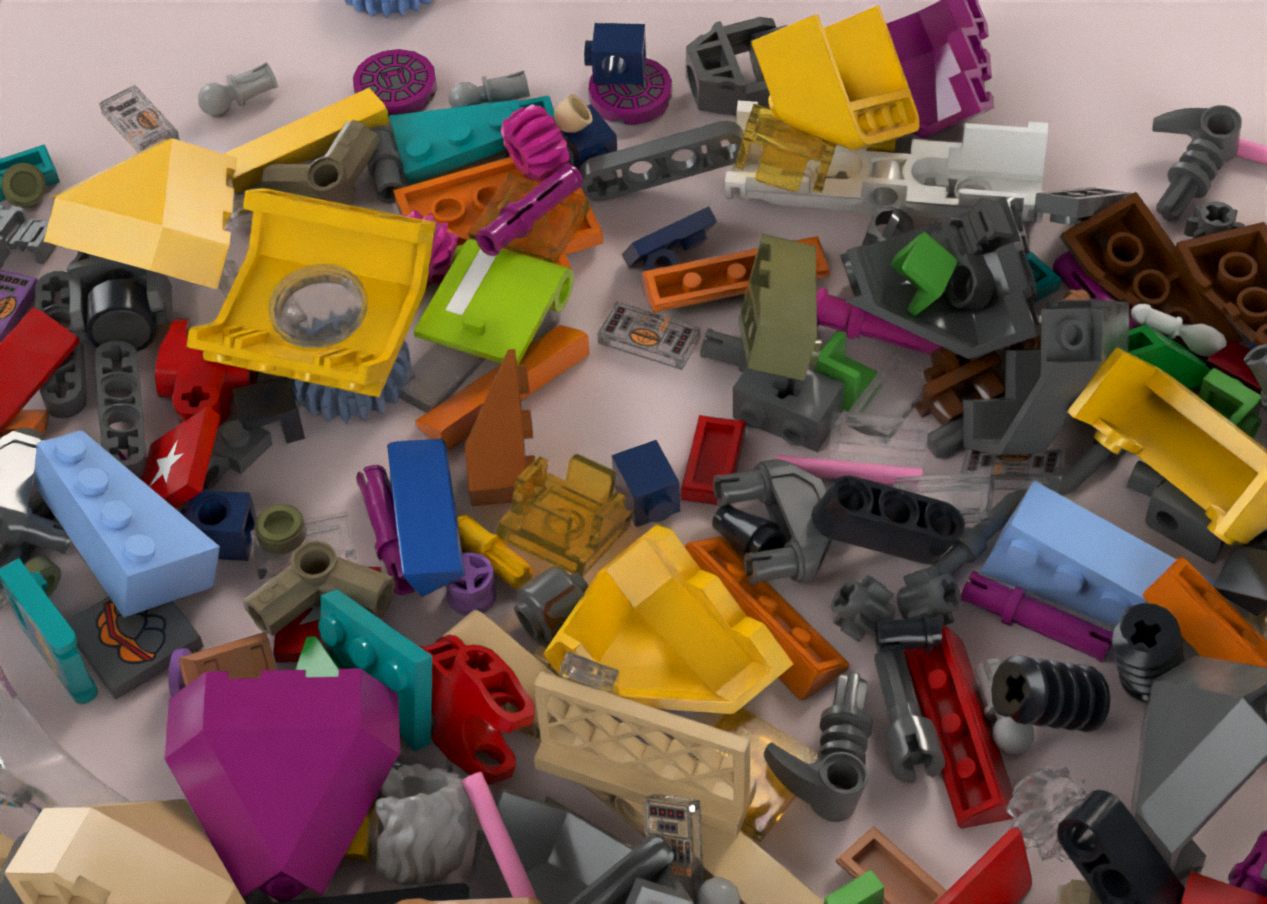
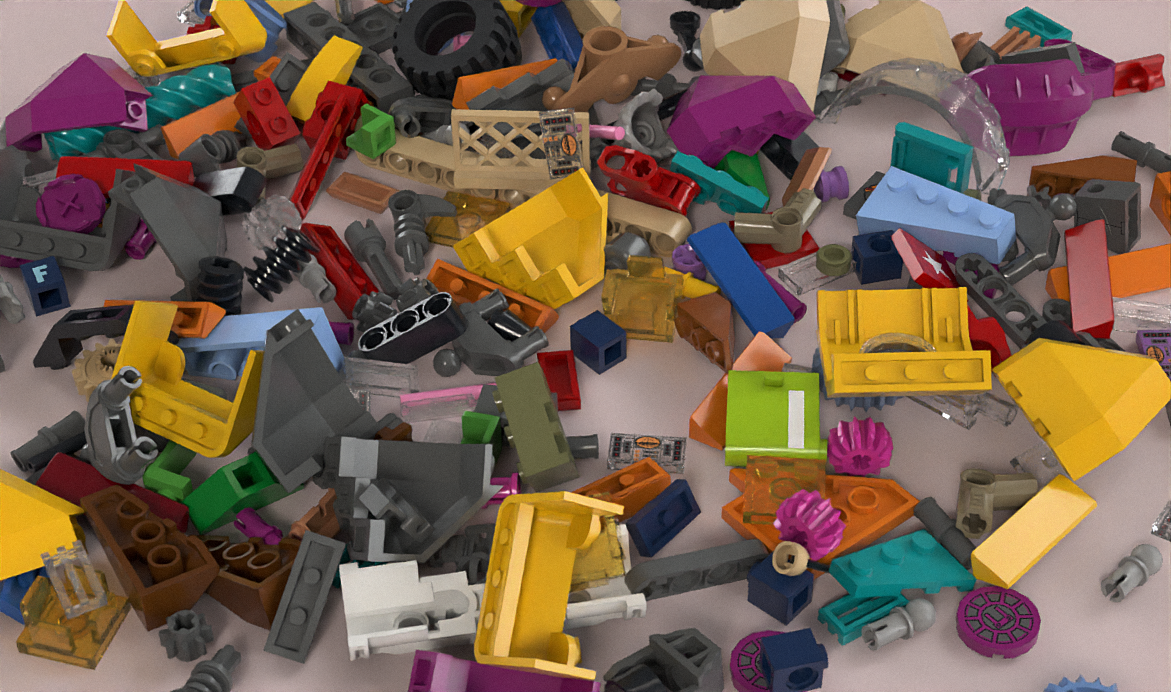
camera: 160 degrees right, 10 degrees down
(518, 218) = (782, 450): magenta pin -> none
(908, 634) = (382, 279): black pin -> none
(927, 268) = (426, 486): bright green panel -> none
(1199, 337) = (219, 527): white piece -> none

